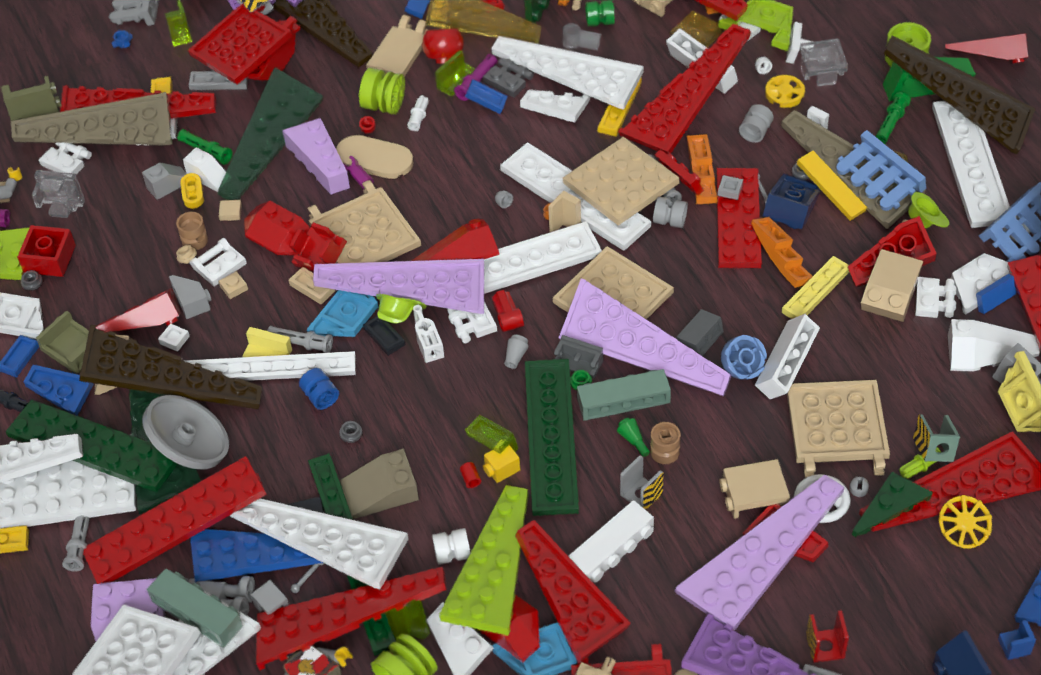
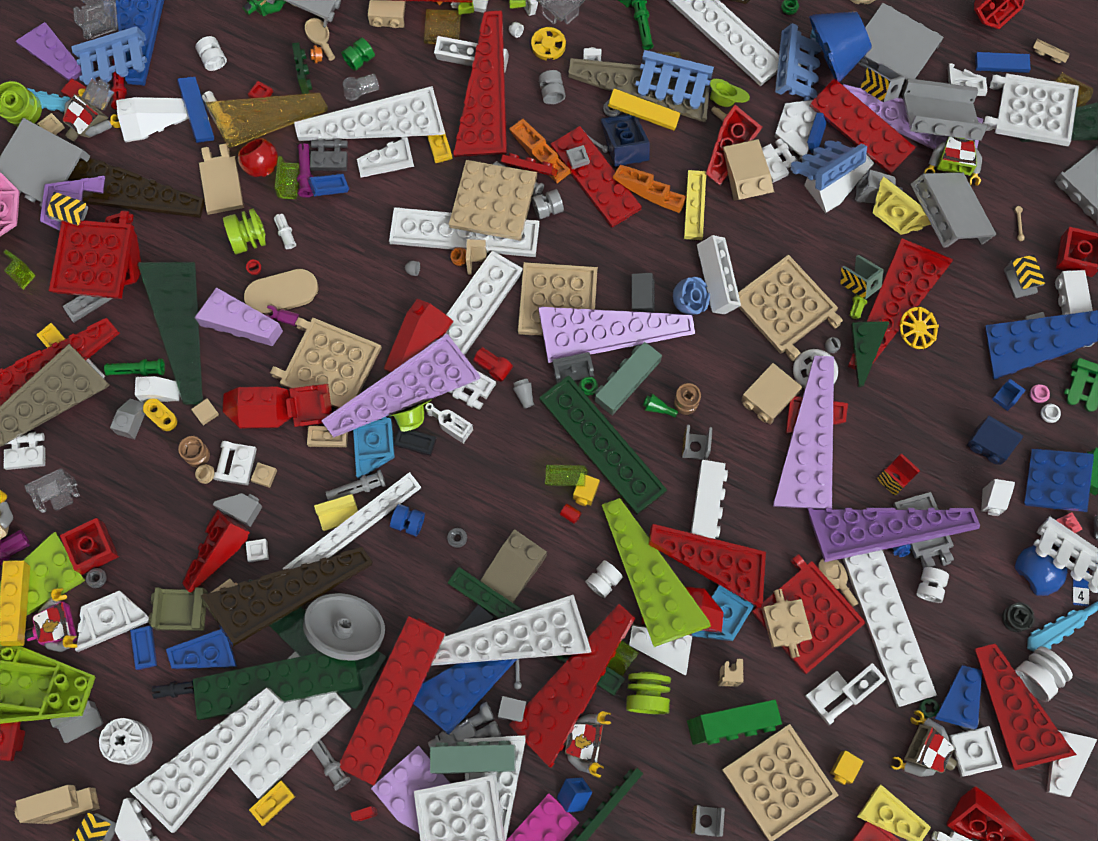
camera: 40 degrees left, 20 degrees up
(66, 595) = (364, 814): none -> red tile
(985, 323) = (830, 163): none -> medium blue fence

